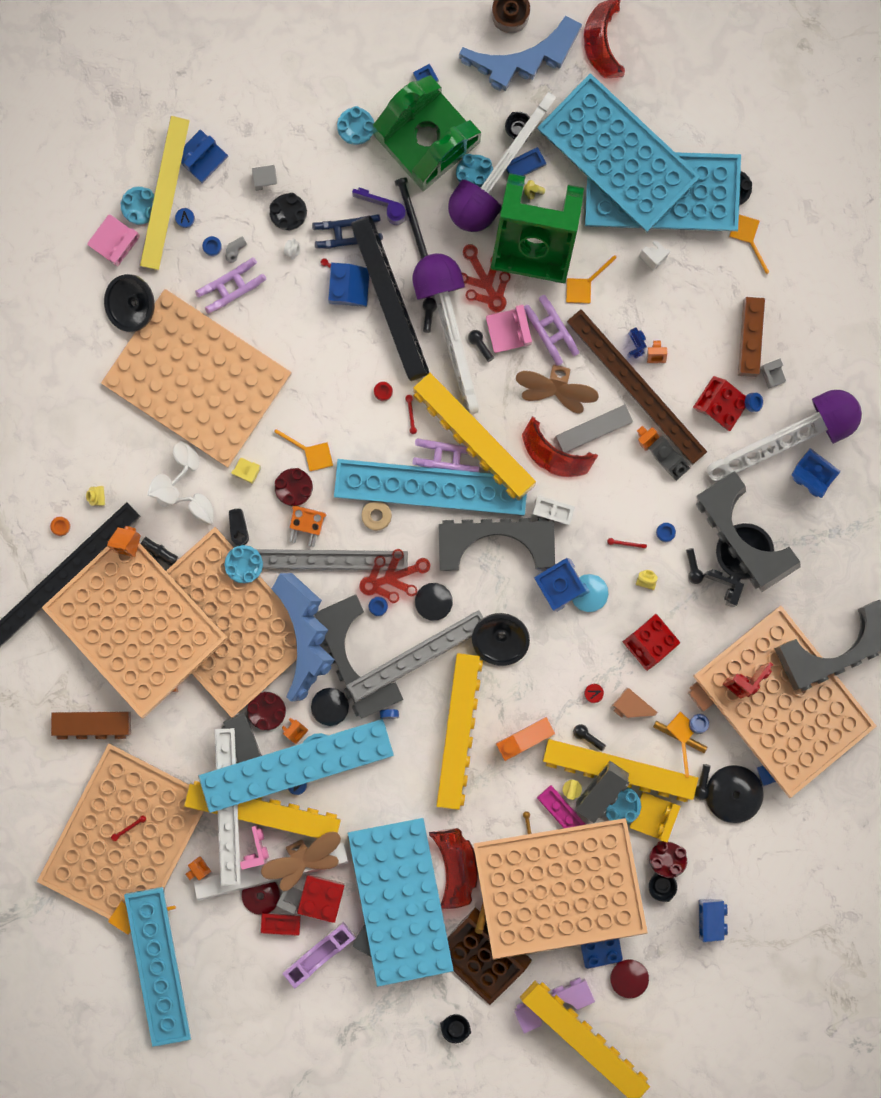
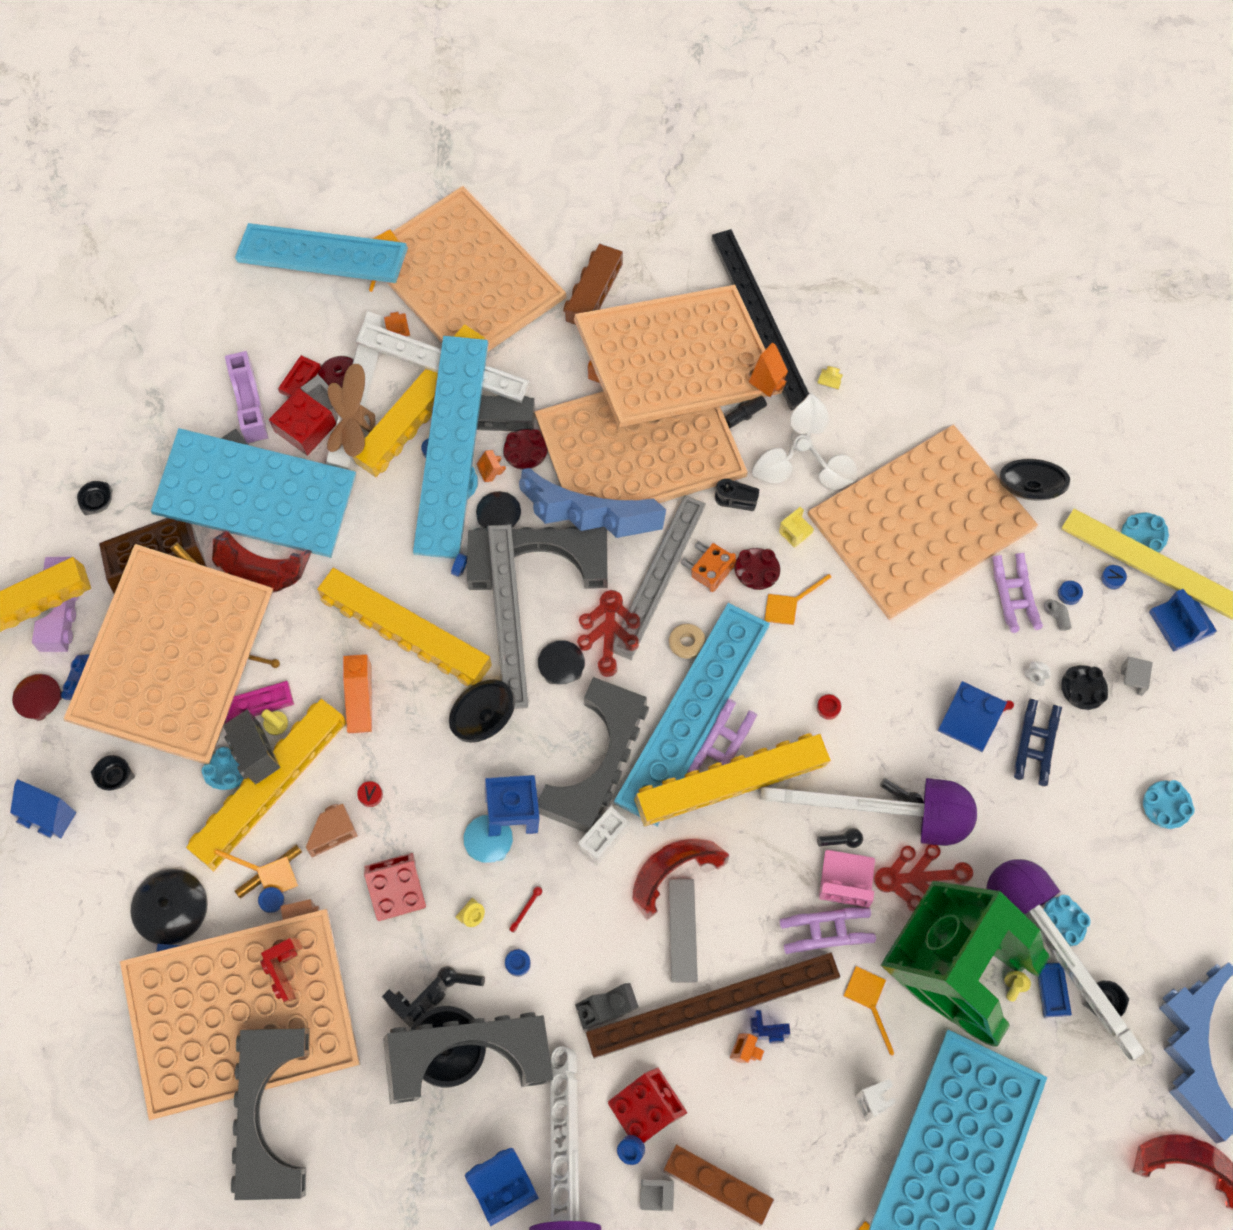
camera: 120 degrees right, 20 degrees down
(60, 526) = (813, 335): orange tile -> none
(113, 240) = (1111, 495): bright pink bracket -> none
(115, 836) = (469, 264): red hinge -> none
(243, 564) = (693, 480): medium azure dish -> none
(253, 860) = (383, 381): bright pink bracket -> none
(378, 606) = (583, 602): blue tile -> none
(390, 298) = (939, 753): black beam -> none
(395, 211) = (1045, 801): dark purple door -> none
(409, 398) = (769, 721): red hinge -> none
(411, 215) = (1077, 828): black bar -> none
(424, 72) = (1207, 914): blue tile -> none
(424, 106) = (1168, 853): green brick -> none
(568, 394) = (758, 887): medium nougat piece -> none
(581, 732) = (333, 762): black bar -> none
(618, 152) = (1030, 1113): medium azure plate -> none
(647, 438) = (644, 989): orange tile -> none
(656, 817) = (192, 800): yellow bracket -> none
(668, 859) = (137, 793): dark red dish -> none
(701, 790) = (194, 868): black bar -> none

